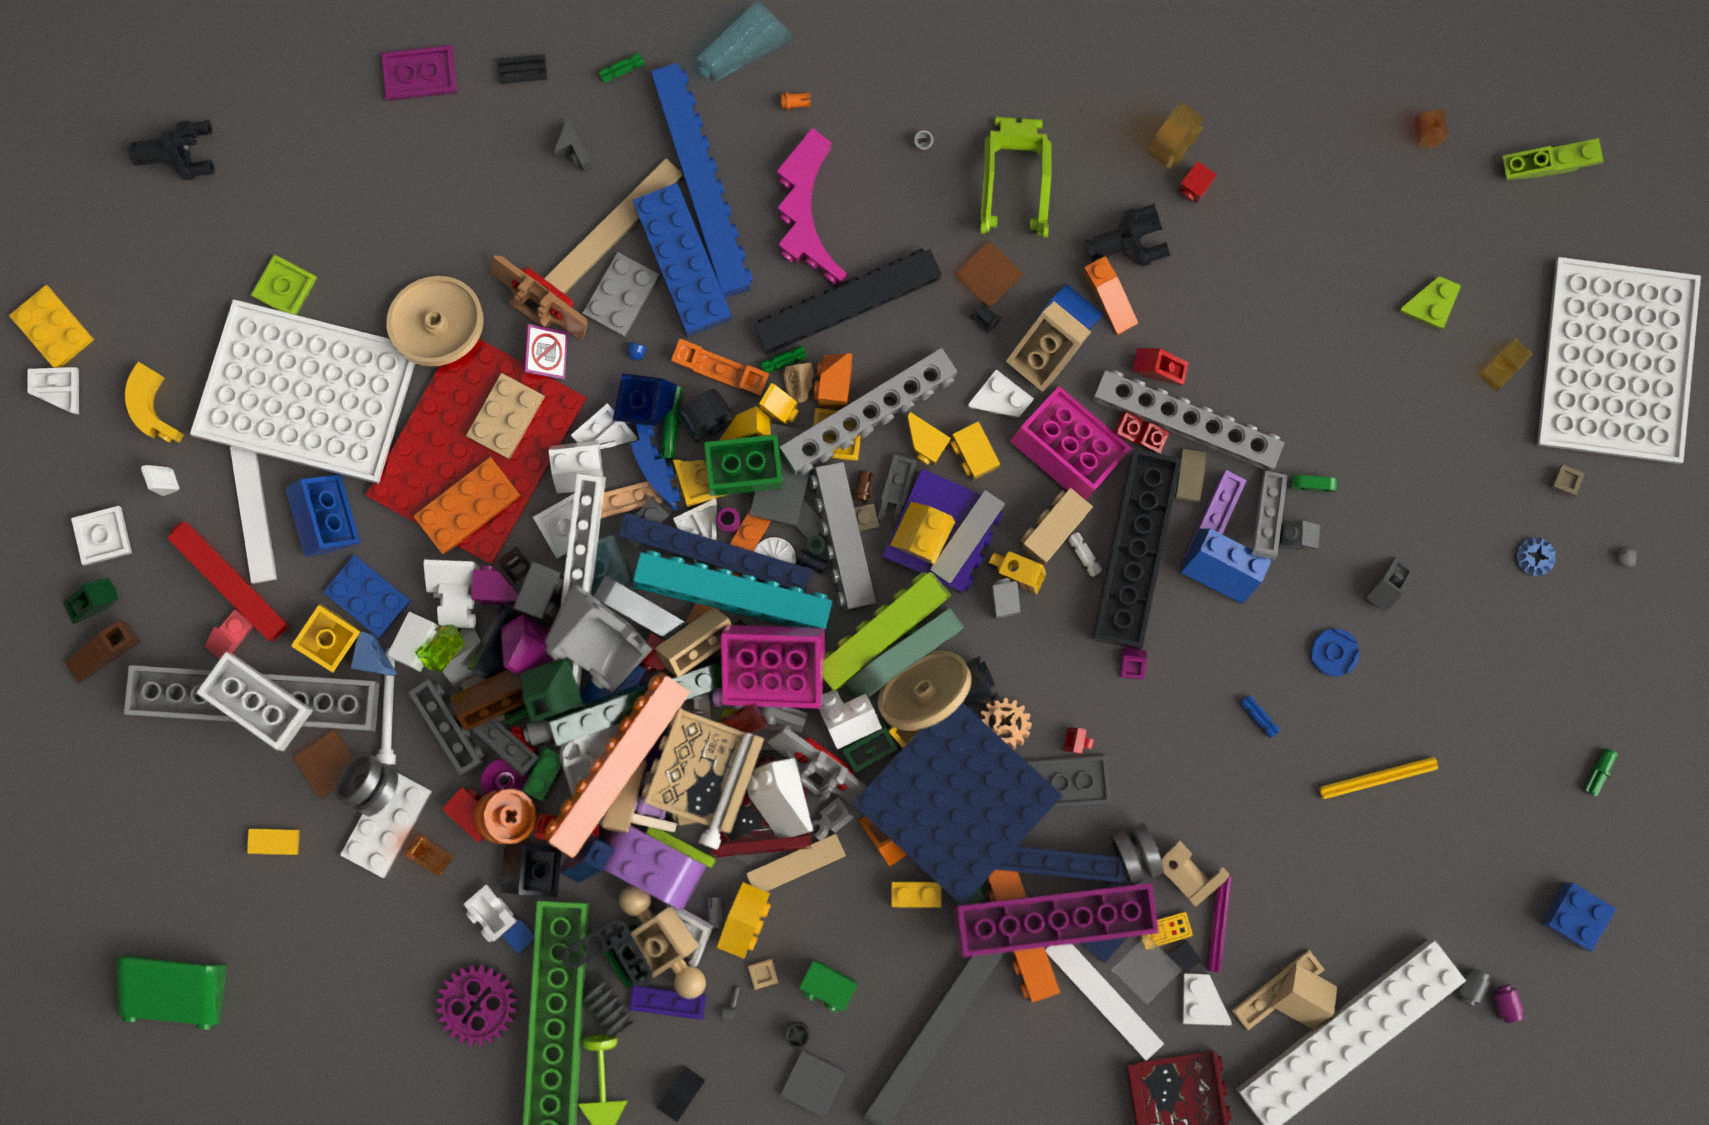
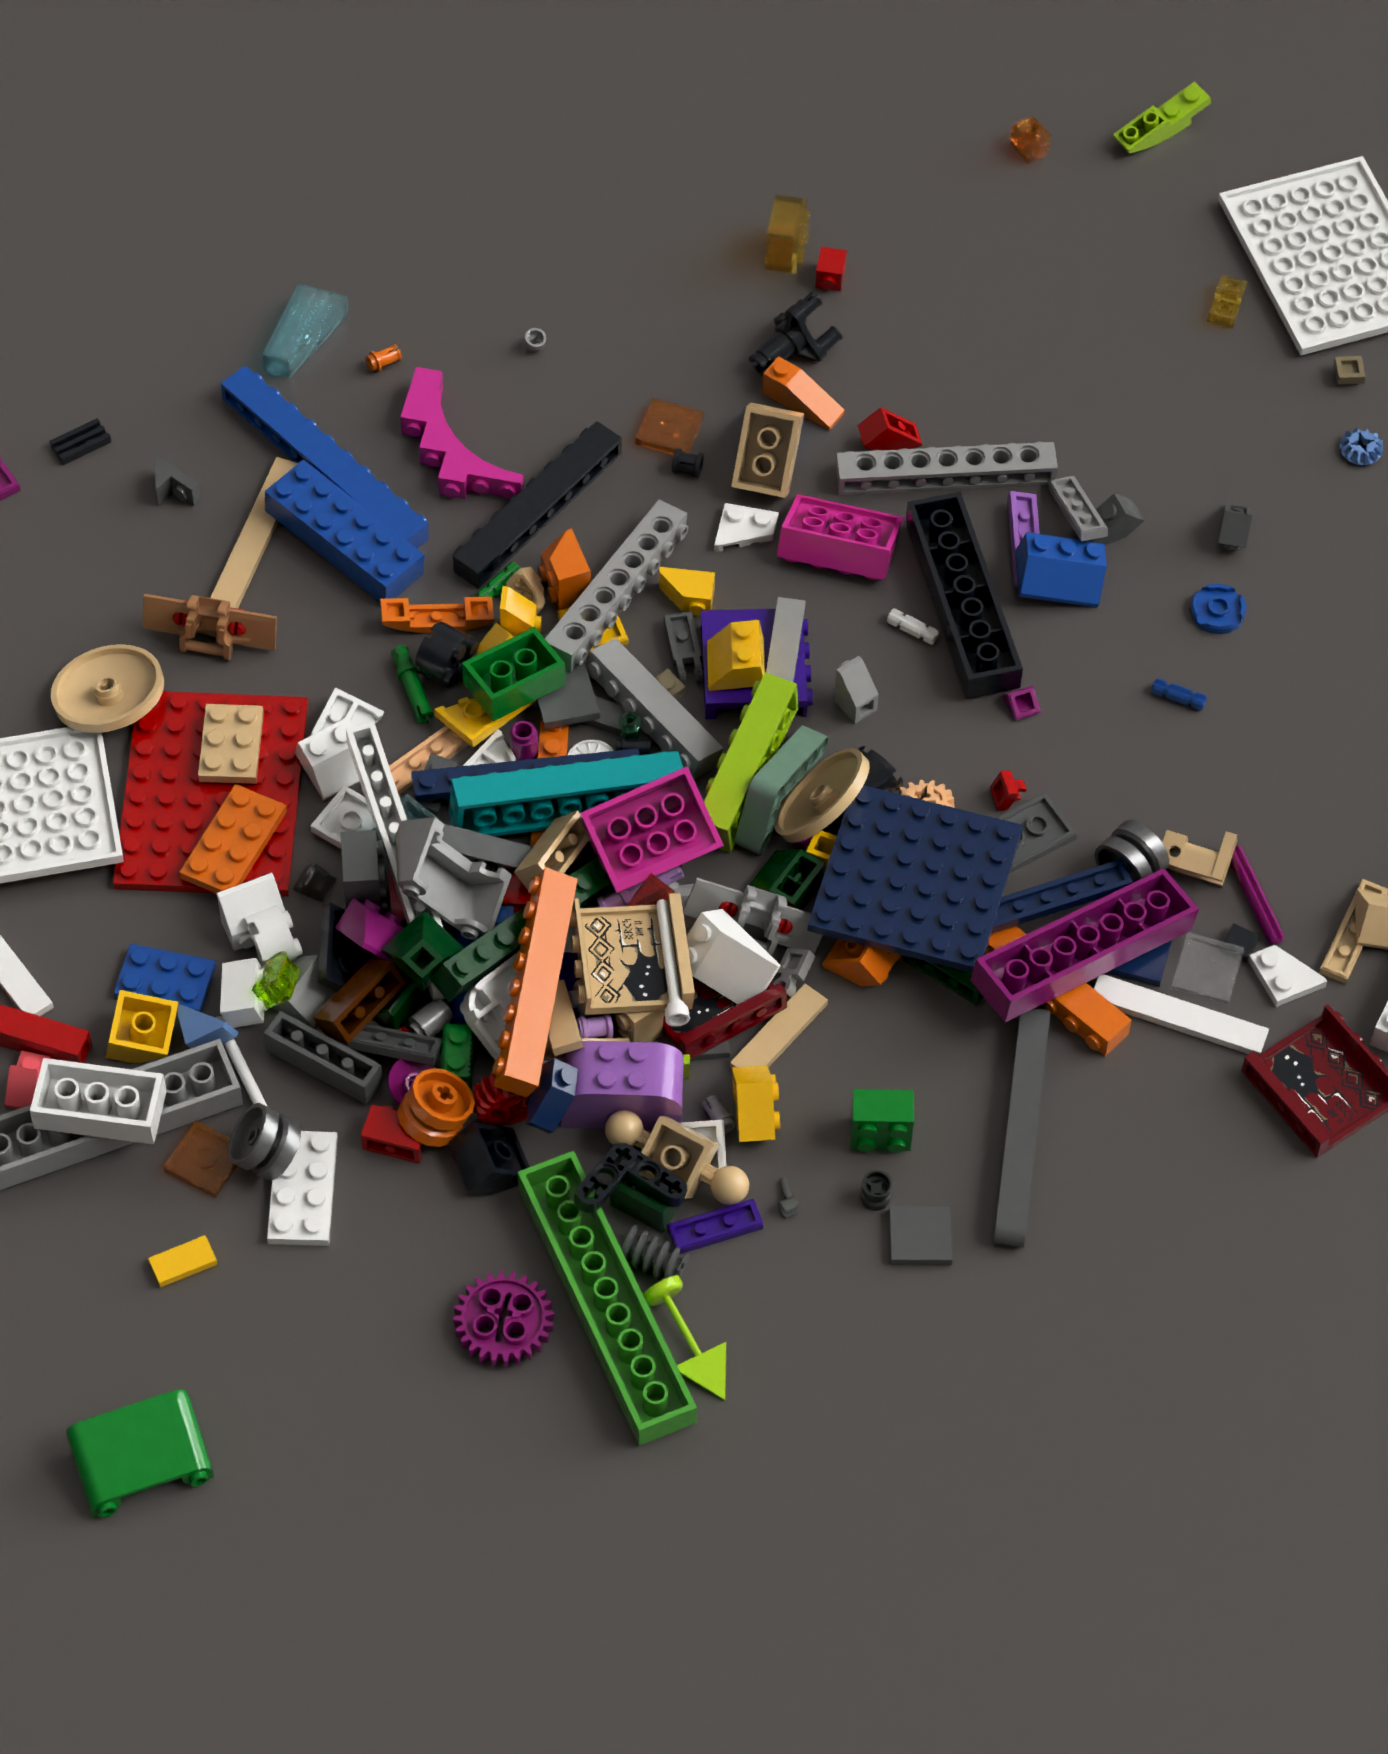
camera: 25 degrees left, 25 degrees down
(322, 515) = (73, 920): blue slope -> none
(428, 854) = (367, 1193): clear orange slope -> none
(490, 913) = (468, 1220): white cylinder -> none
(492, 587) = (305, 895): magenta slope -> none
(519, 936) = (514, 1233): blue tile -> none
(545, 352) = (242, 670): piece -> none
(621, 67) = (185, 400): green axle -> none
(621, 294) = (296, 593): light grey plate -> none
(636, 351) = (338, 634): blue hinge -> none
(643, 399) = (372, 661): clear blue slope -> none
(655, 471) = (417, 727): blue slope -> none
(681, 1094) = (781, 1311): black slope -> none
(763, 974) = (804, 1153): tan tile -> none
(848, 720) = (754, 861): white brick -> none
(863, 486) = (648, 657): reddish brown pin -> none
(915, 894) = (924, 1000): yellow brick -> none
(975, 451) = (746, 579): yellow brick -> none
(1017, 137) = (639, 298): lime piece -> none
(1028, 575) = (865, 646): yellow torso -> none
(1055, 526) = (868, 605): tan brick -> none
(1141, 433) = (894, 499): red slope -> none
(1172, 929) = (1211, 921): yellow tile -> none
(1191, 476) = (981, 514): dark tan slope -> none
(1314, 483) = (1105, 471): green beam -> none
(1378, 778) = (1331, 698): yellow axle -> none
(1433, 303) = (1123, 280): lime wing -> none

